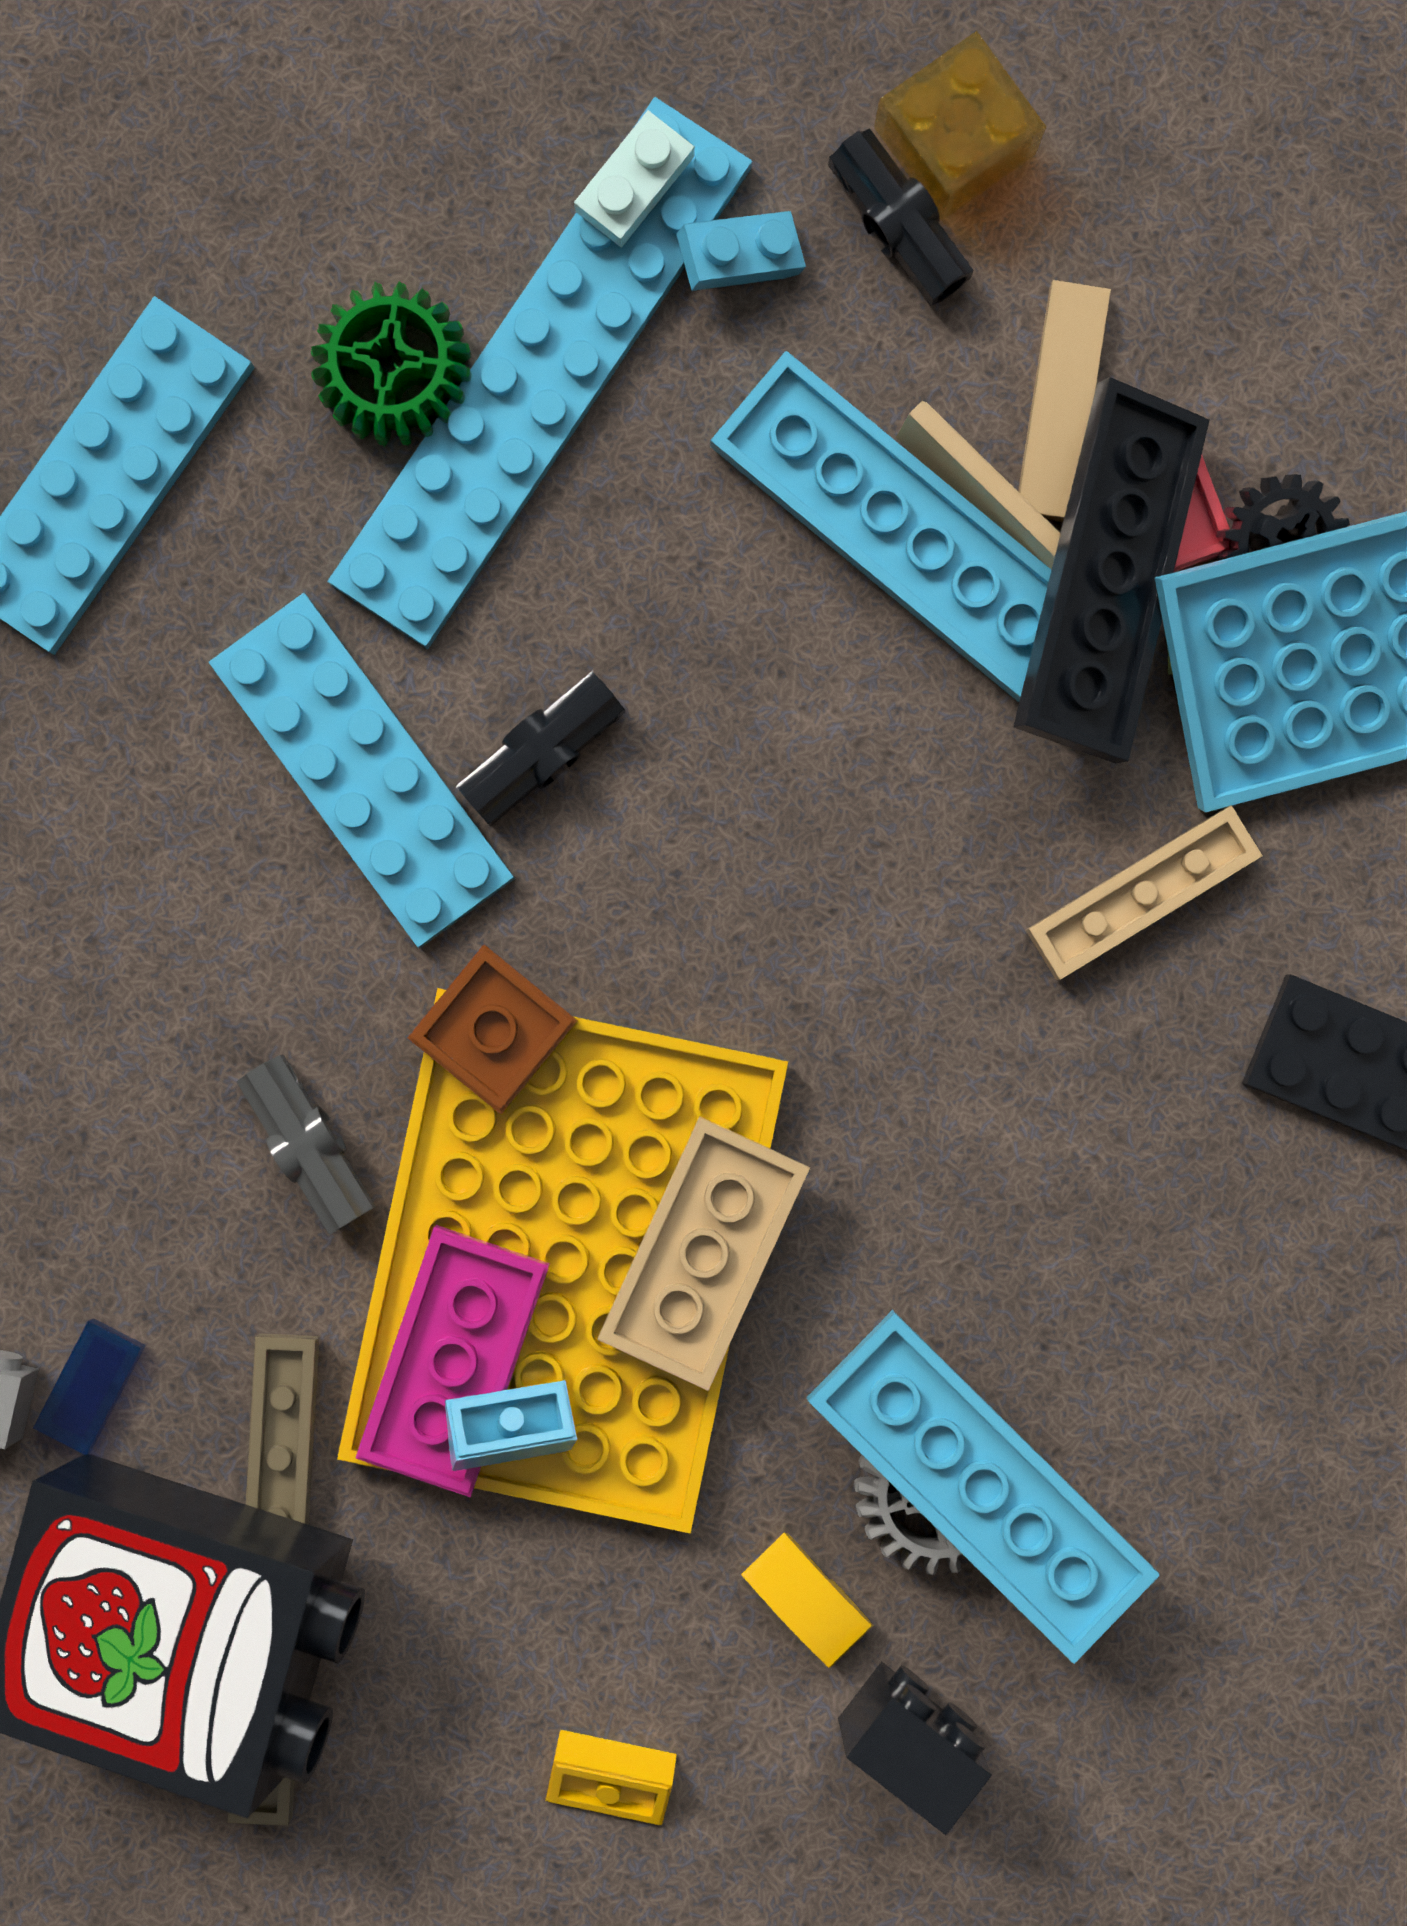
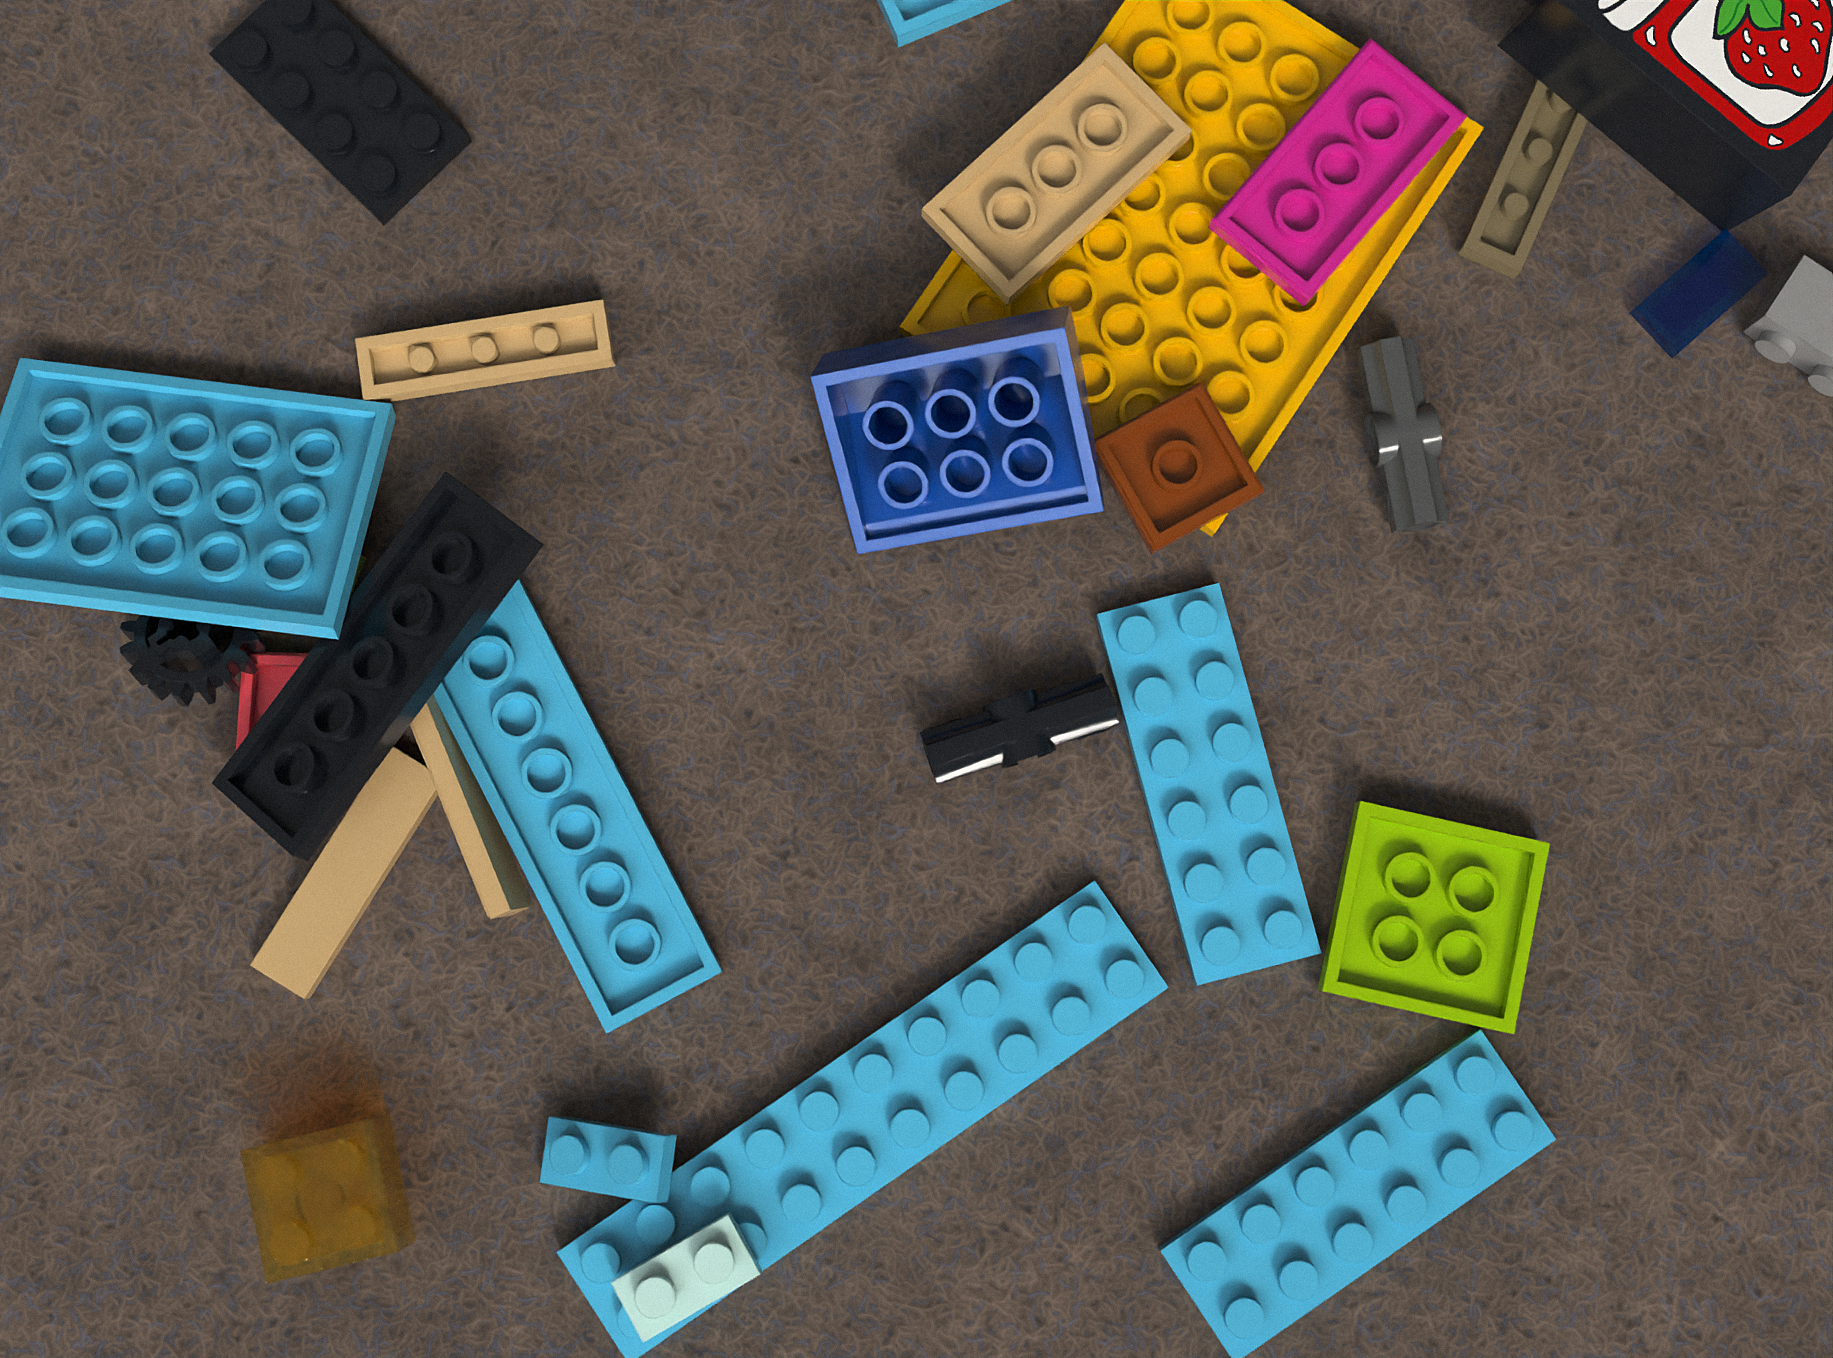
camera: 150 degrees left, 5 degrees down
(123, 731) = (1434, 917): none -> lime plate
(345, 352) = (1064, 1214): green gear -> none
(509, 1425) = (1306, 86): medium azure slope -> none
(696, 985) = (960, 430): none -> blue slope
(900, 216) = (429, 1129): black piece -> none

